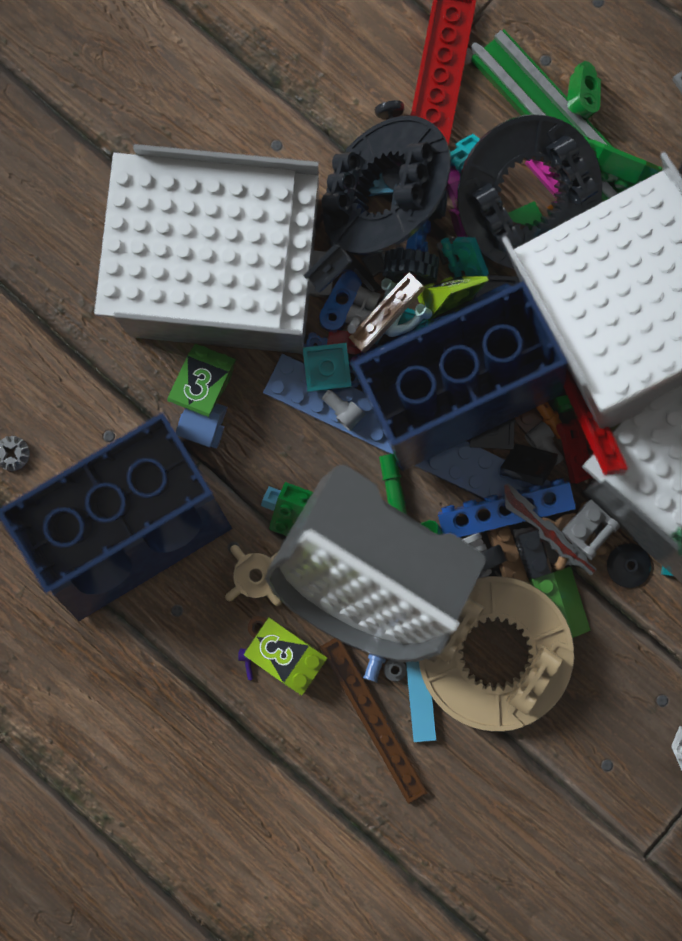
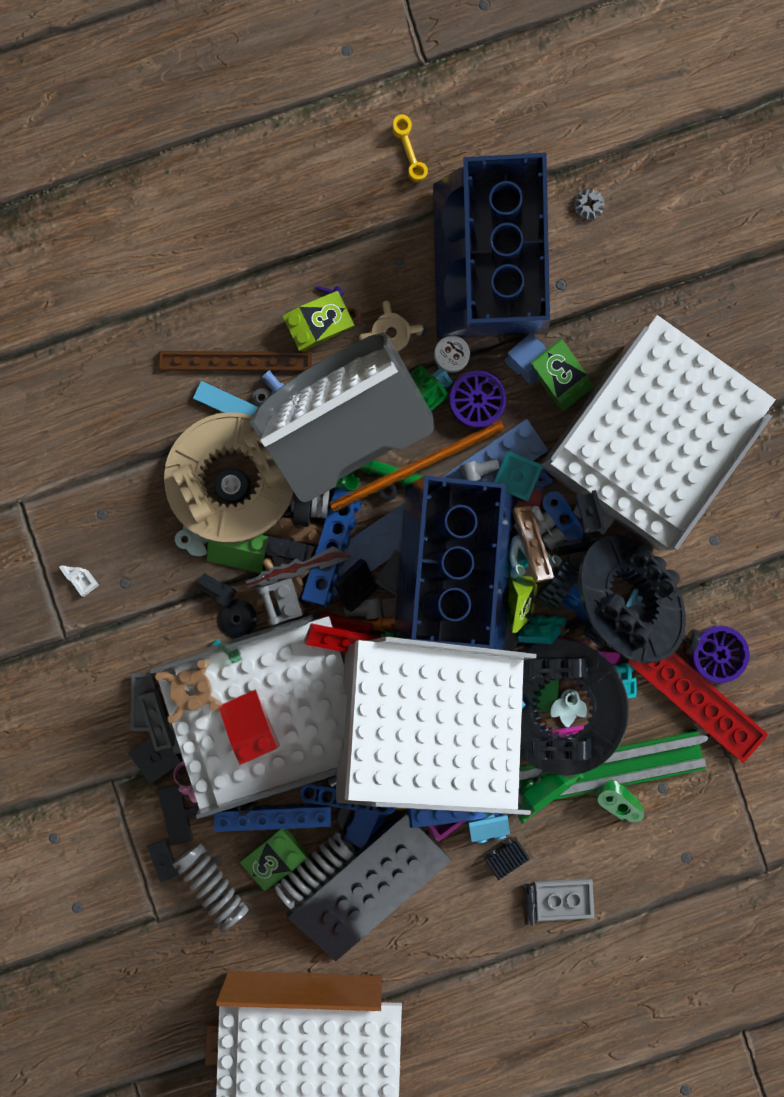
camera: 120 degrees right, 5 degrees up
(74, 645) = (417, 170): none -> yellow piece
(241, 503) = (451, 354): none -> white head
(247, 442) = (490, 380): none -> dark purple piece
(374, 472) = (417, 465): none -> orange axle
(377, 79) = (743, 660): none -> dark purple piece
(422, 488) = (388, 497): none -> black plate
(507, 651) = (226, 482): none -> black wheel
(524, 190) = (569, 710): none -> light aqua plate
(583, 652) = (195, 543): none -> light aqua plate
(614, 596) = (219, 591): none -> black piece

